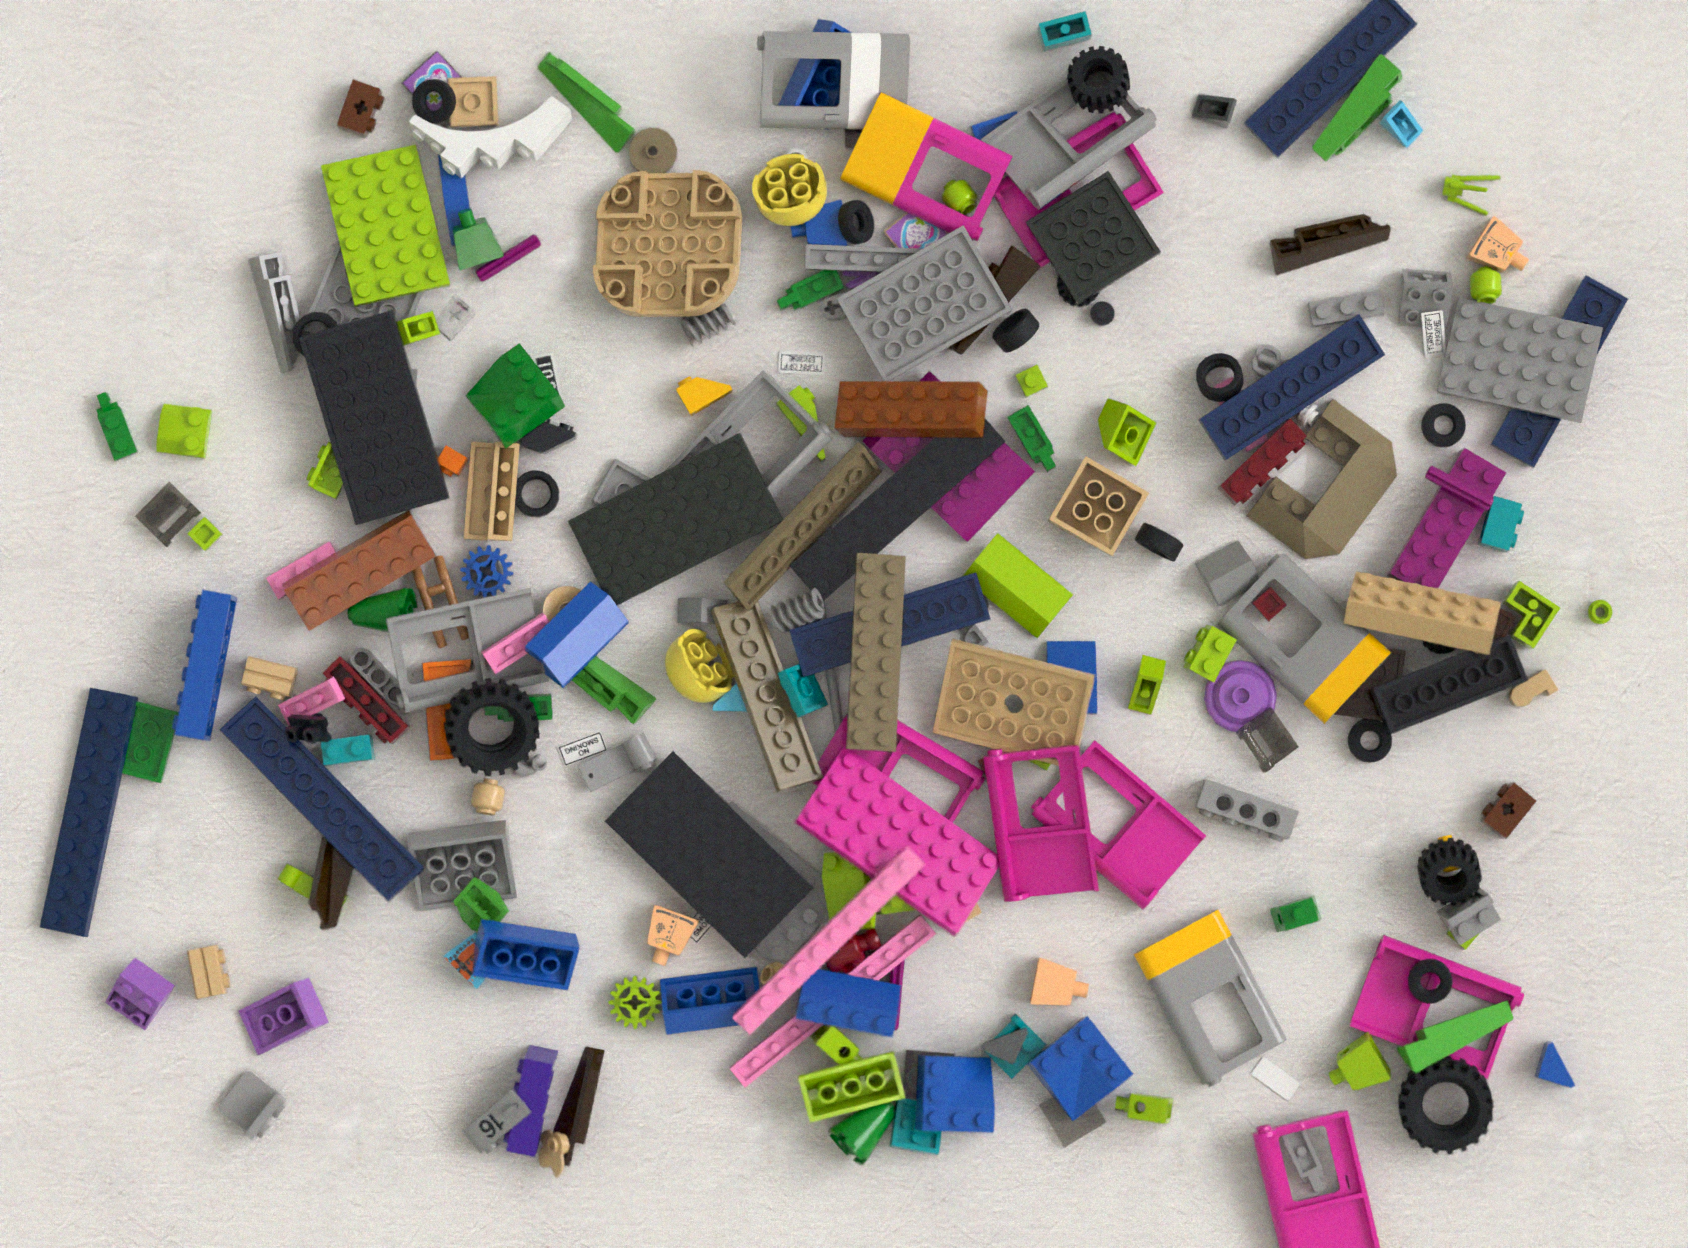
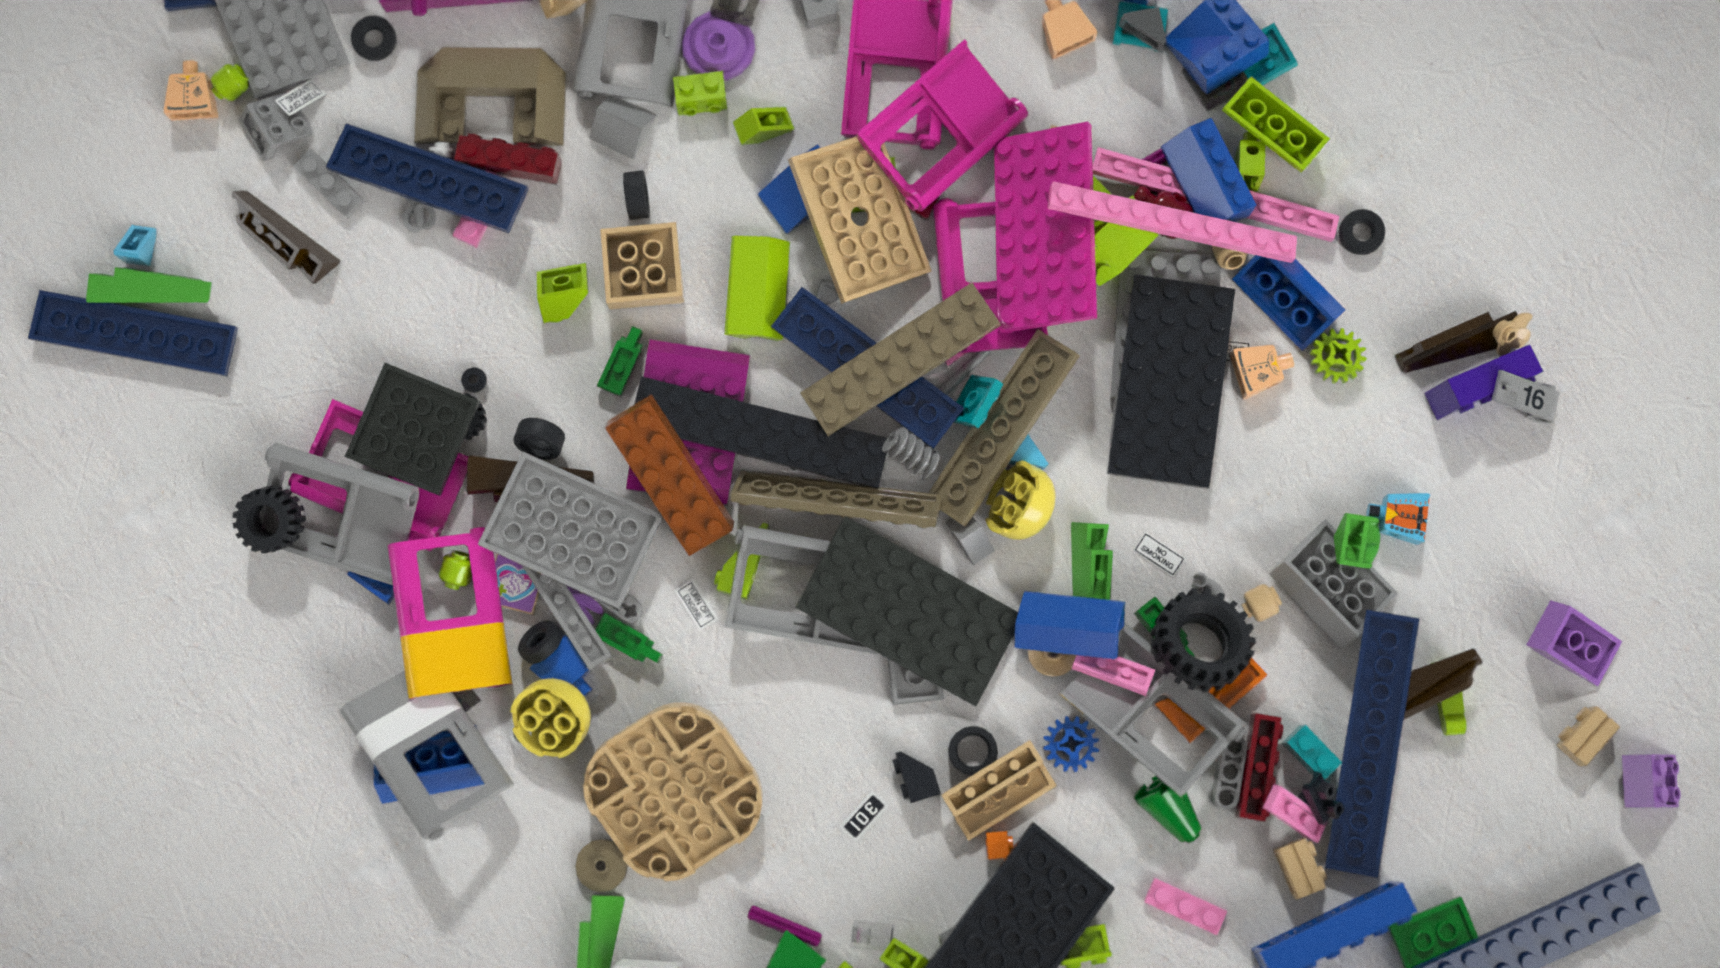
camera: 120 degrees left, 5 degrees down
(252, 1104) = (1667, 613): light grey bracket -> none
(358, 570) = (1152, 856): dark orange brick -> none
(445, 586) = (1127, 783): medium nougat piece -> none
(514, 396) = (903, 829): green slope -> none
(525, 954) = (1371, 473): blue slope -> none
(618, 762) = (1149, 515): light grey door -> none
(701, 393) = (784, 670): yellow slope -> none
(707, 322) = (723, 710): light grey piece -> none
(732, 1088) = (1361, 247): none -> black tyre
(862, 1131) = (1304, 93): green cone -> none
(1031, 380) = (574, 399): lime plate -> none
(1064, 31) = (247, 581): teal brick -> none
(1212, 362) = (445, 253): black tyre -> none
(1214, 109) = (230, 406): dark grey slope -> none
(1269, 604) = (624, 73): dark red plate -> none
(1454, 186) = (162, 165): lime plant -> none

